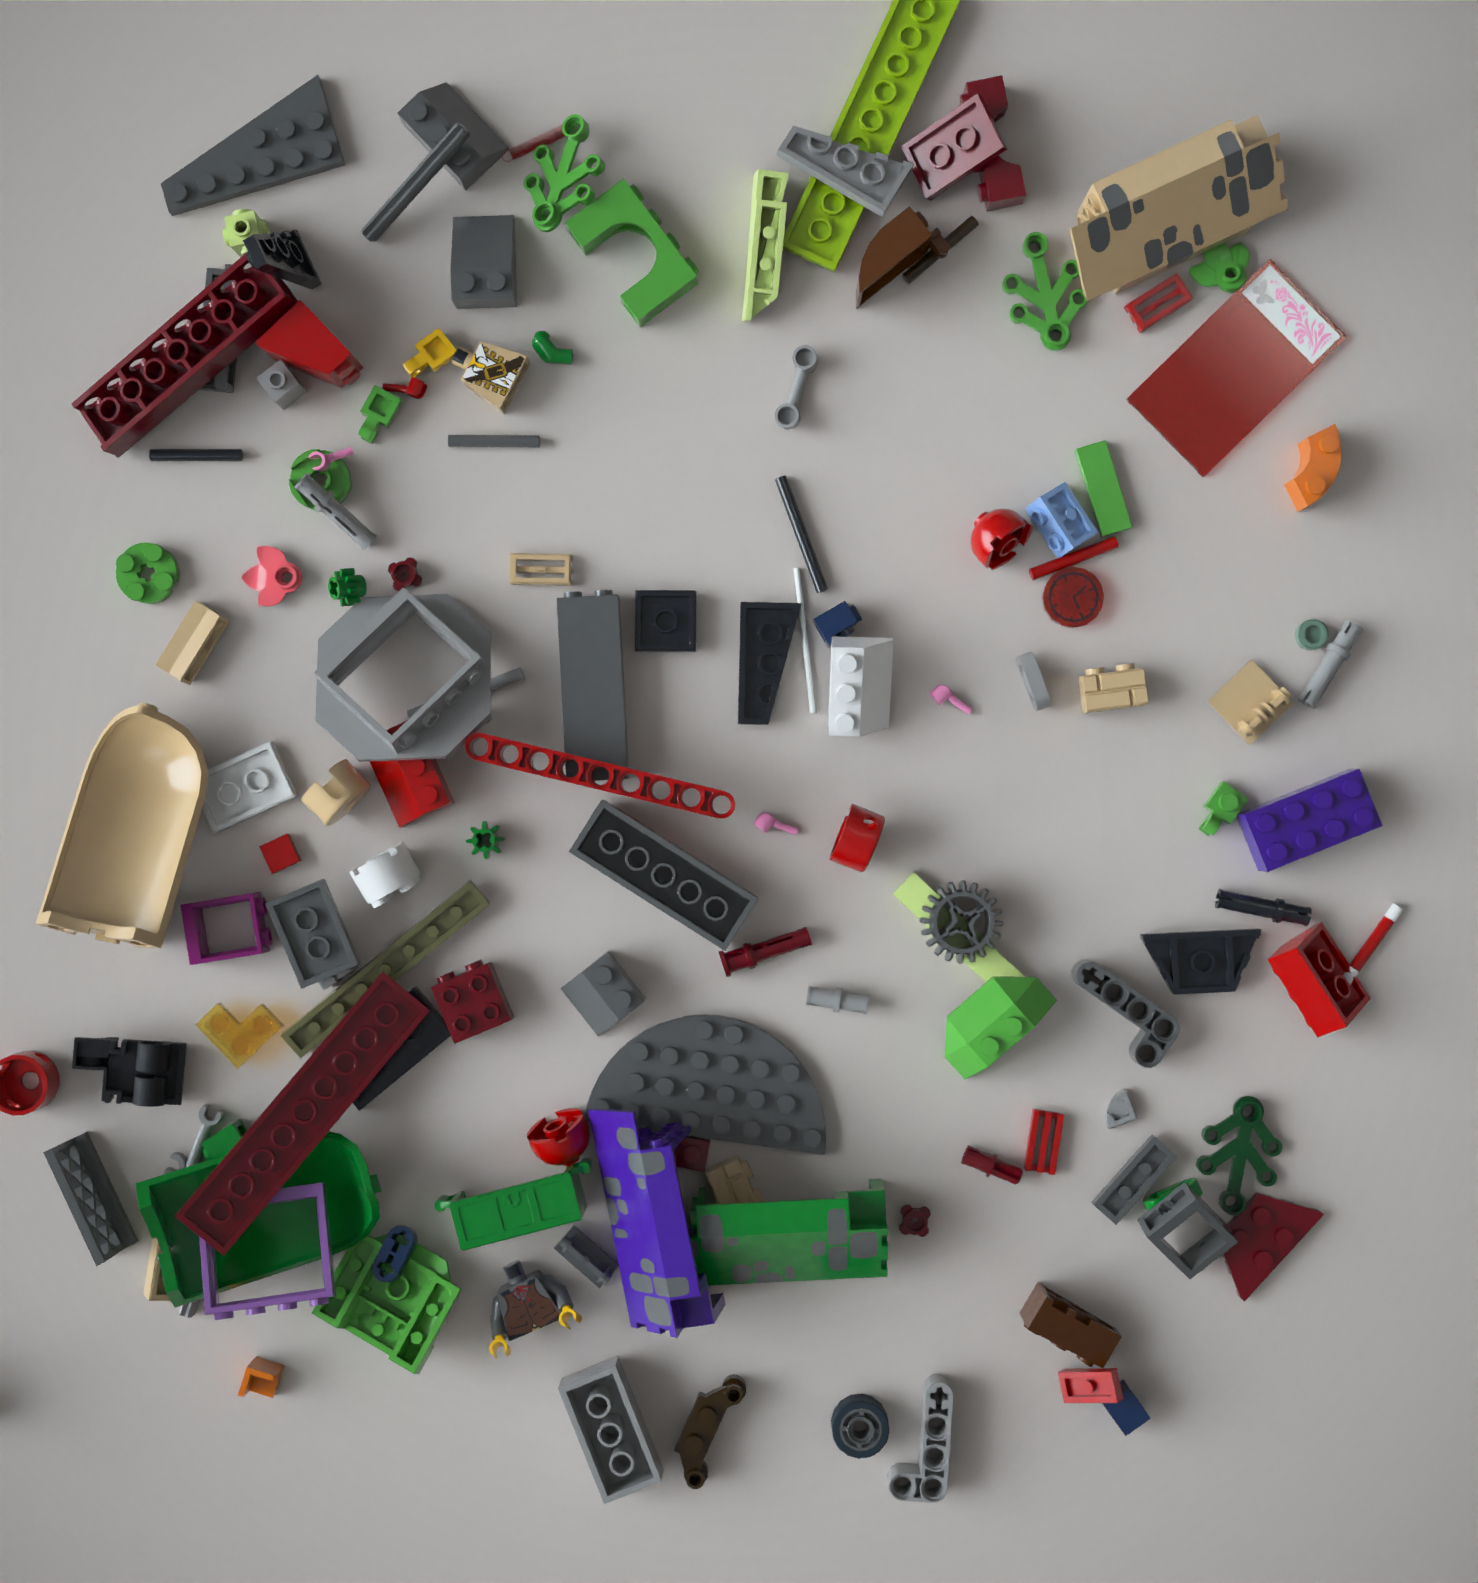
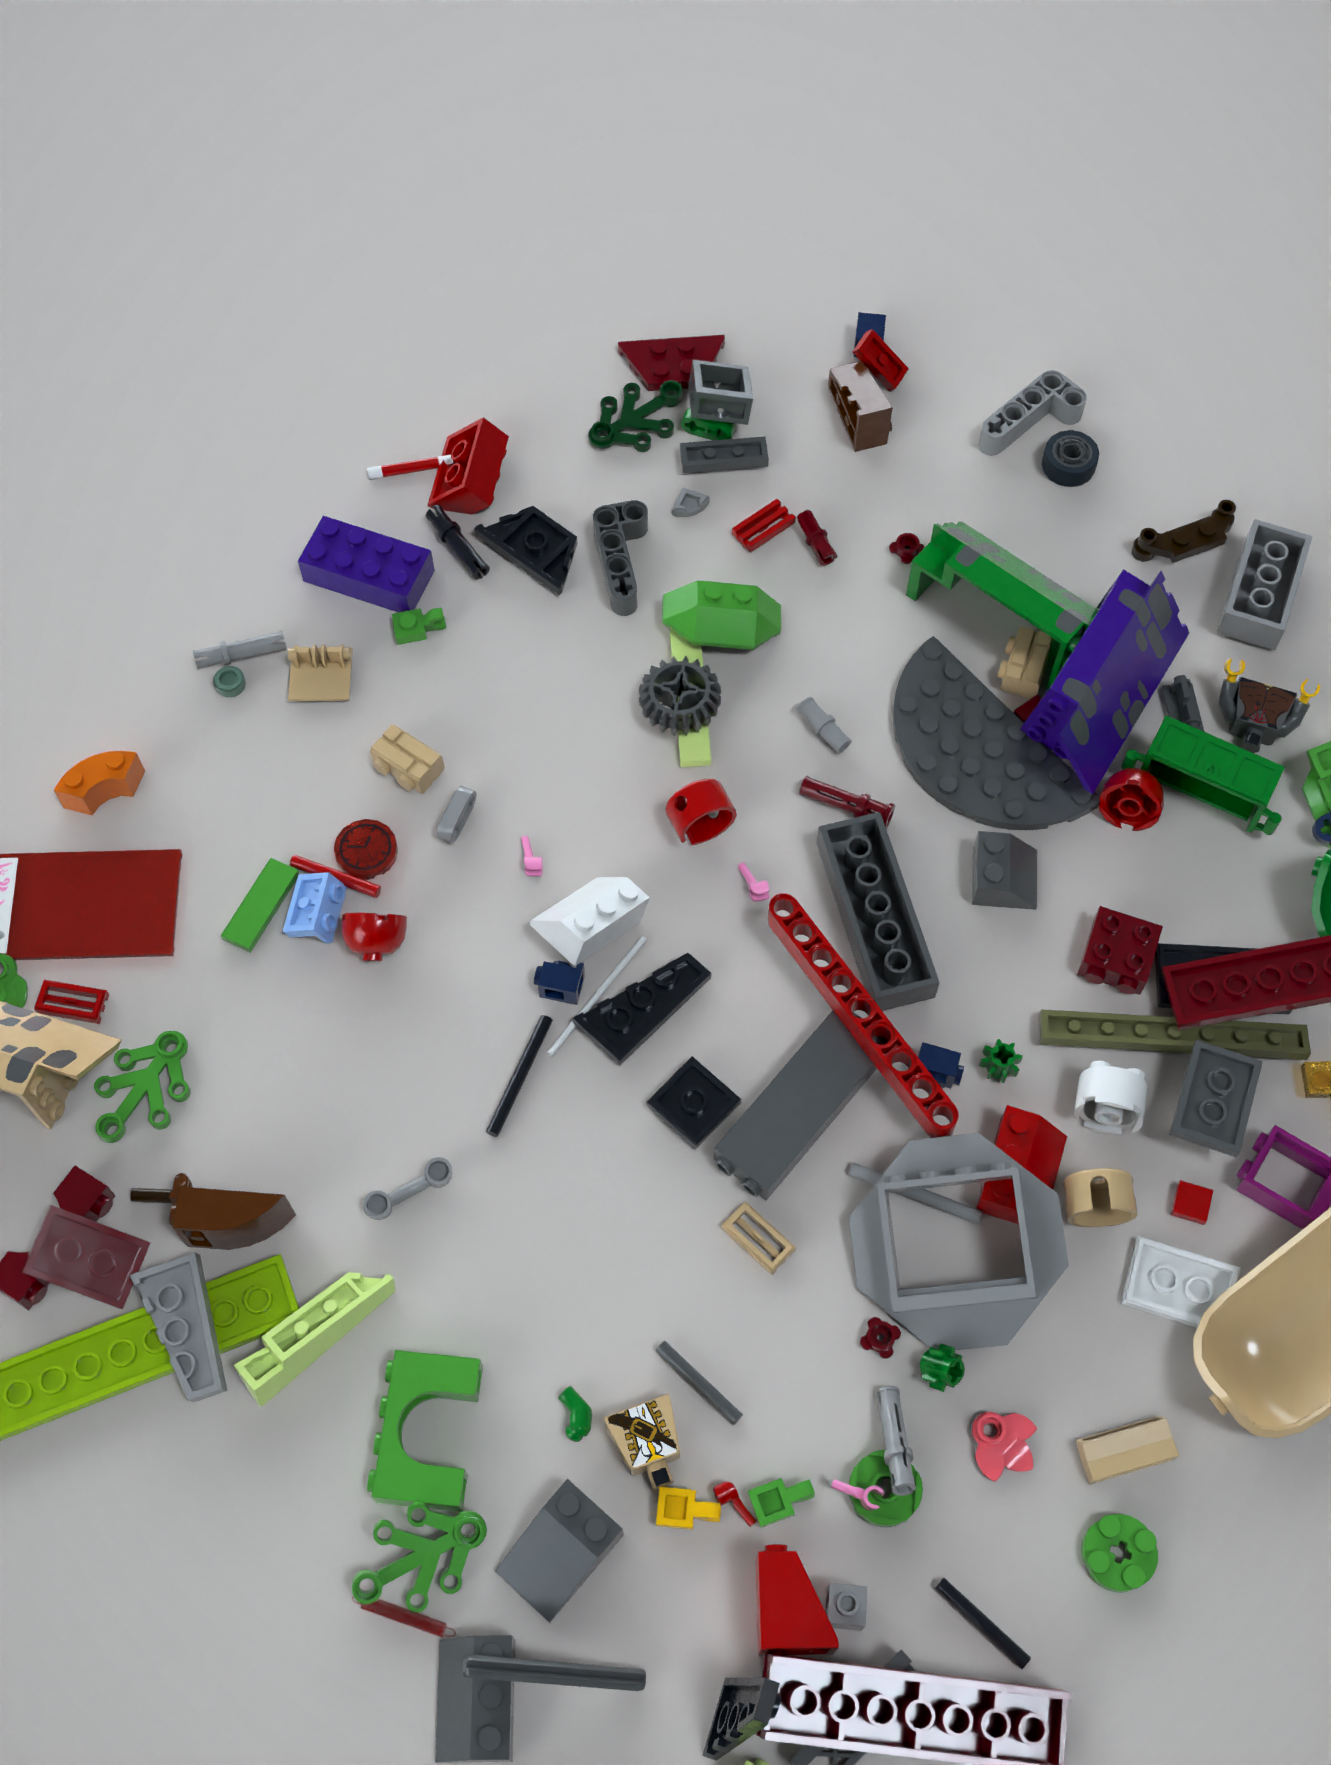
camera: 140 degrees left, 25 degrees down
(523, 795) = (942, 1064): none -> dark blue brick

